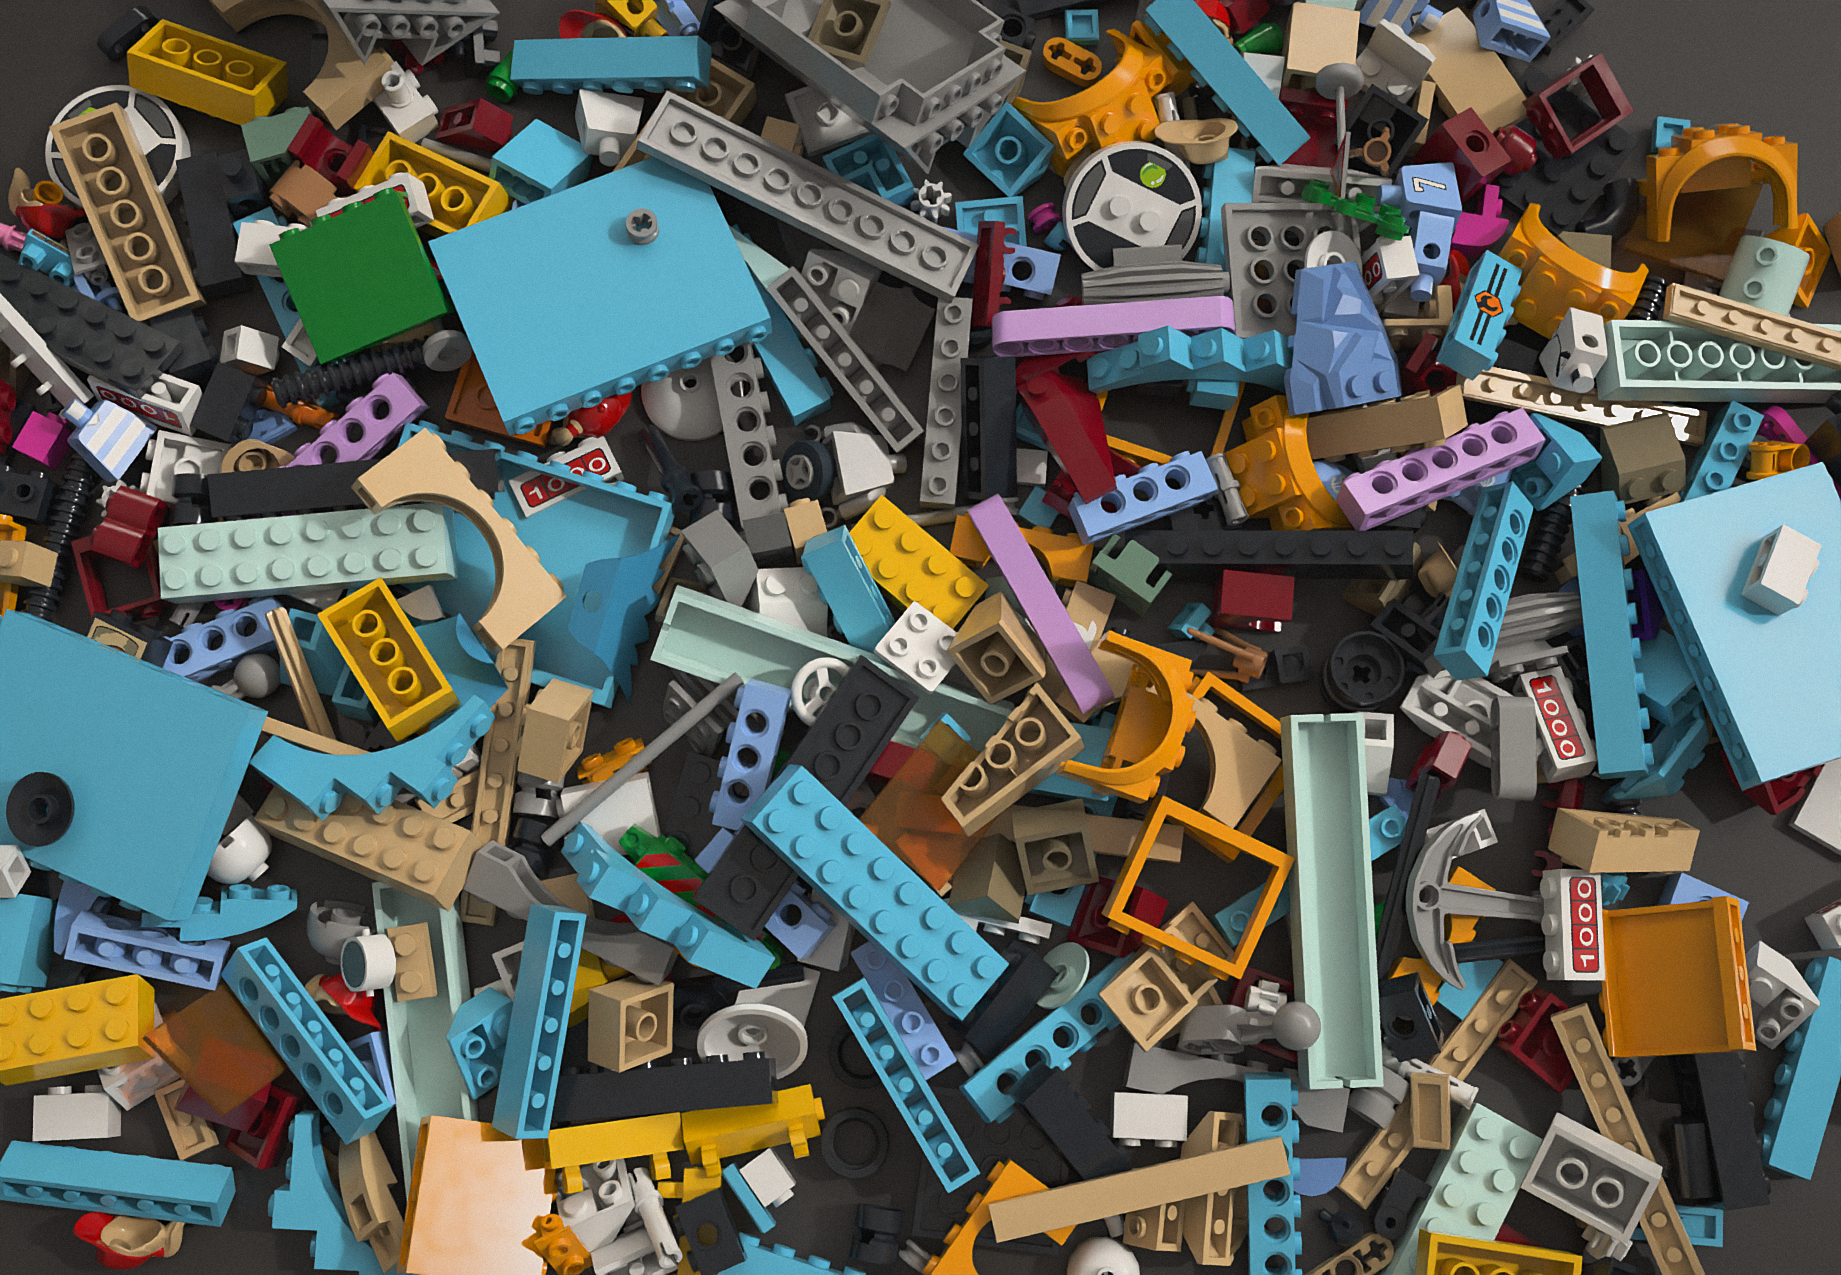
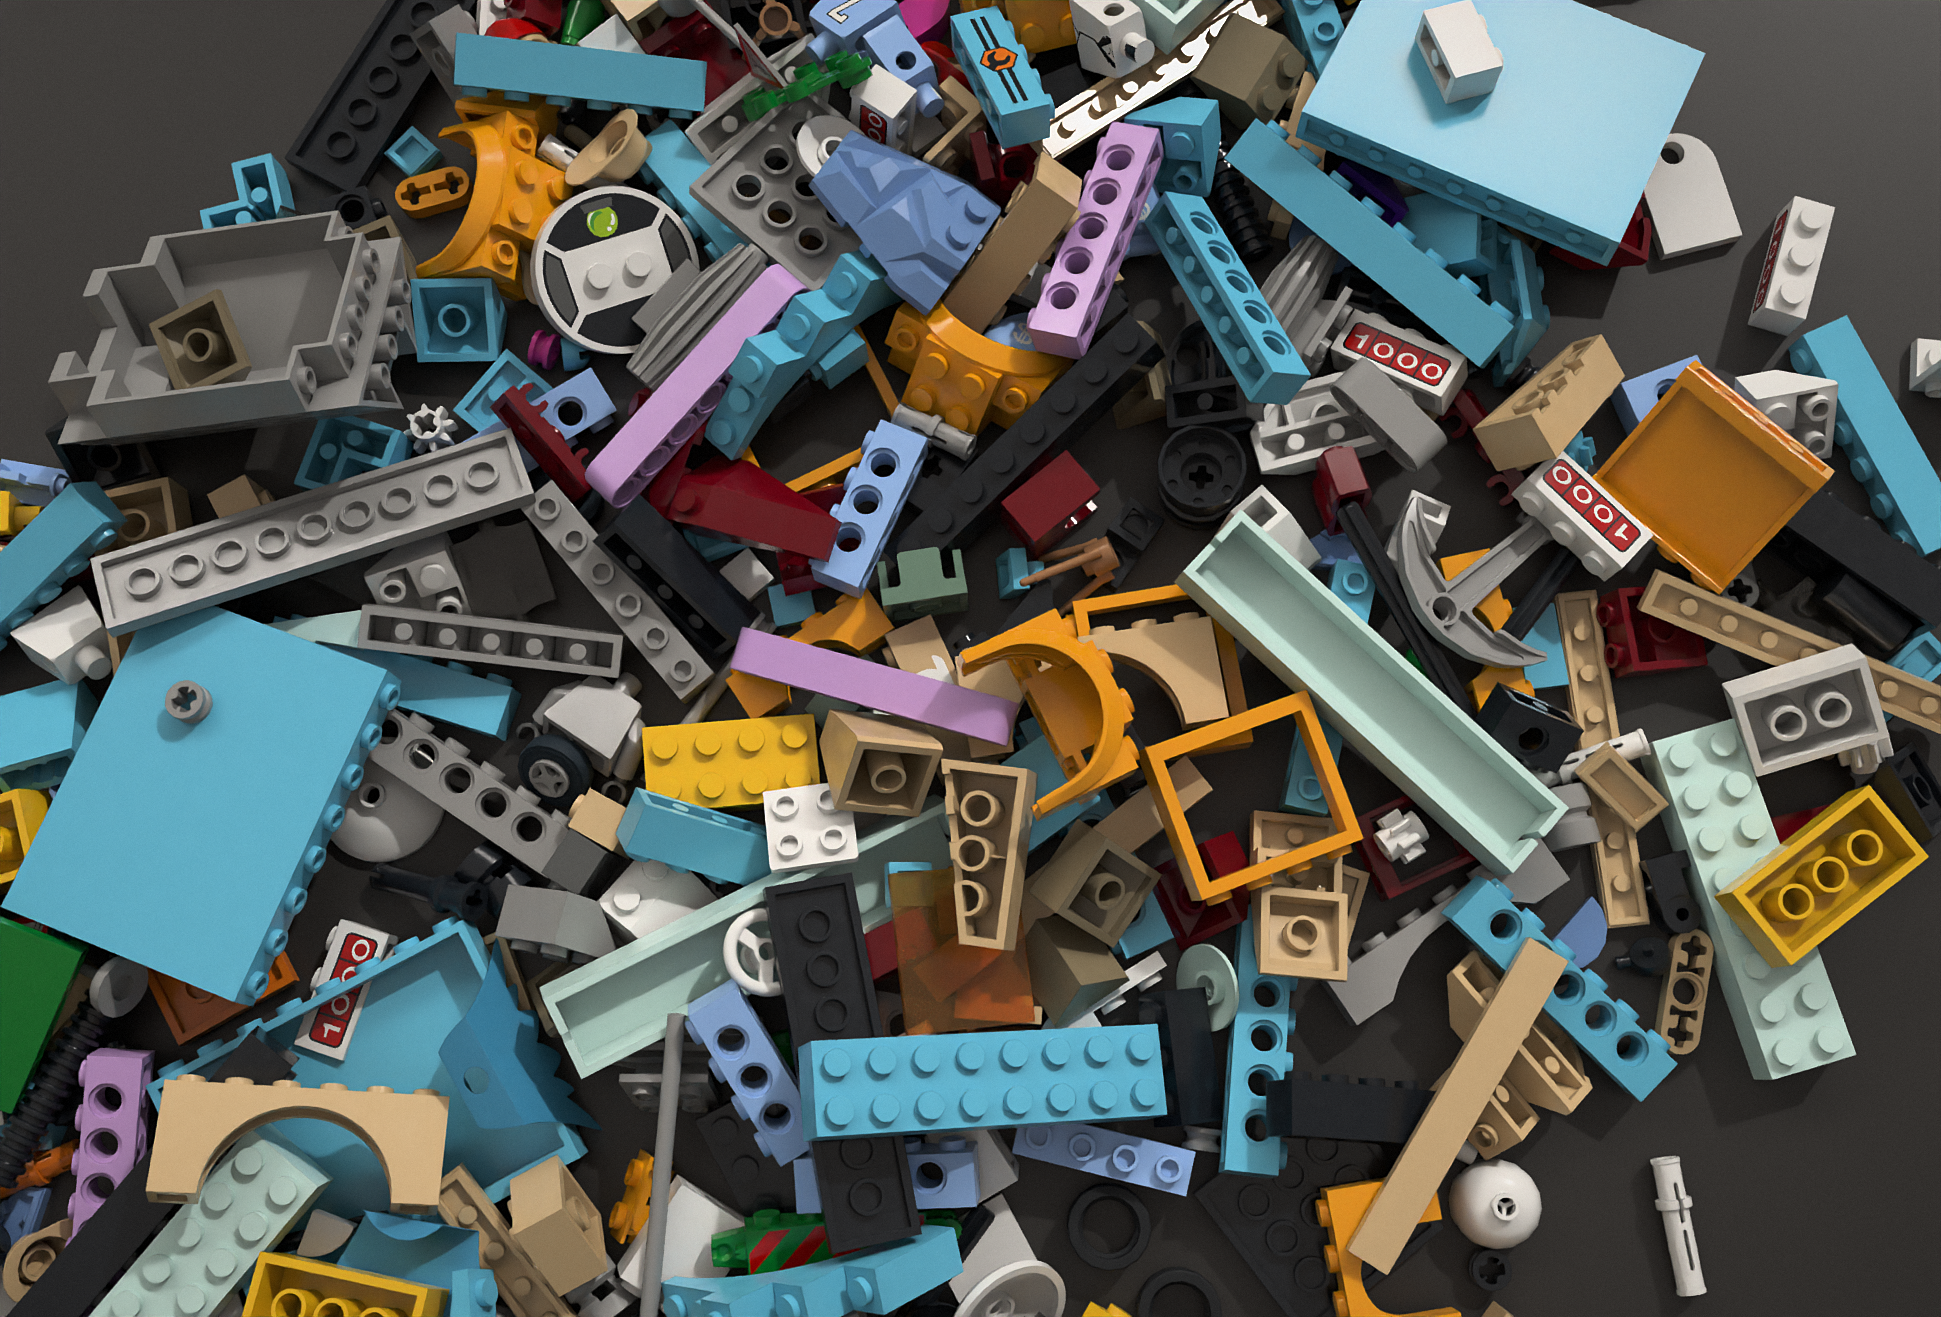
camera: 35 degrees left, 0 degrees up
(591, 421) = (319, 915): red hair -> none
(821, 122) = (263, 453): white tile -> none
(906, 1084) = (1173, 1218): medium azure brick -> none
(1148, 1117) = (1400, 1031): white brick -> none
(1230, 1027) = (1397, 885): light grey beam -> none
(1438, 573) = (1181, 328): tan piece -> none

